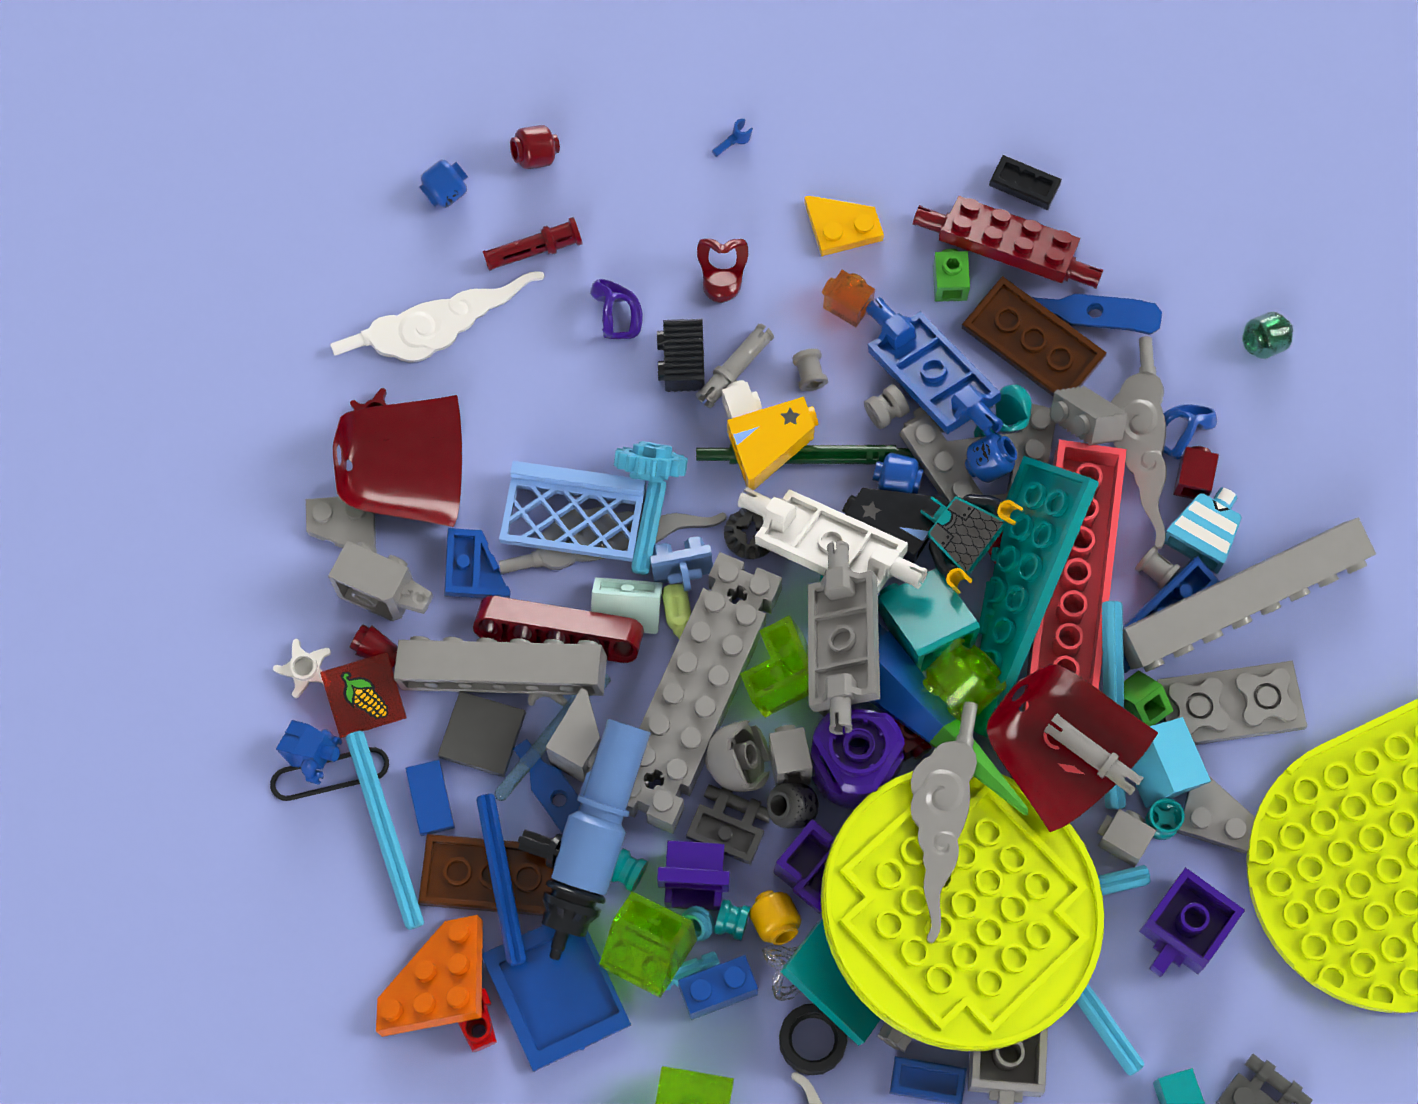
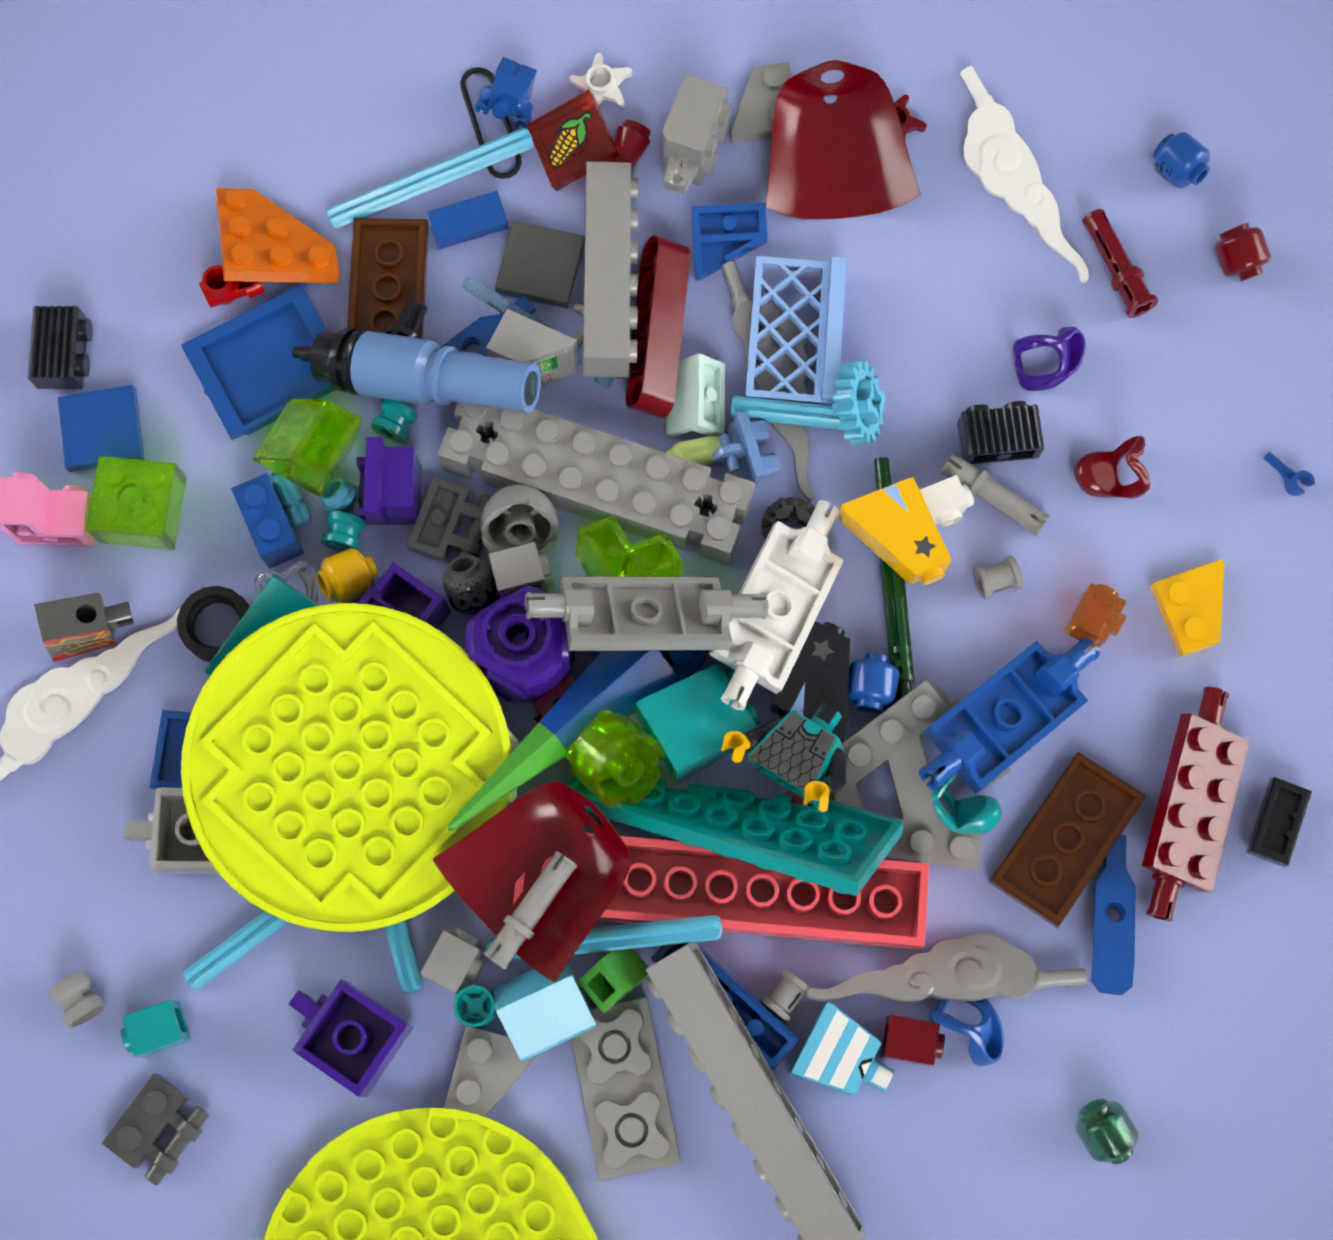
camera: 85 degrees right, 5 degrees up
(501, 880) = (377, 292): blue axle -> none
(886, 406) = (953, 660): light grey wheel -> none
(941, 809) = (451, 733): light grey piece -> none
(951, 275) = (1140, 734): bright green brick -> none
(991, 457) = (897, 782): blue head -> none
(1088, 415) = (966, 900): light grey brick -> none

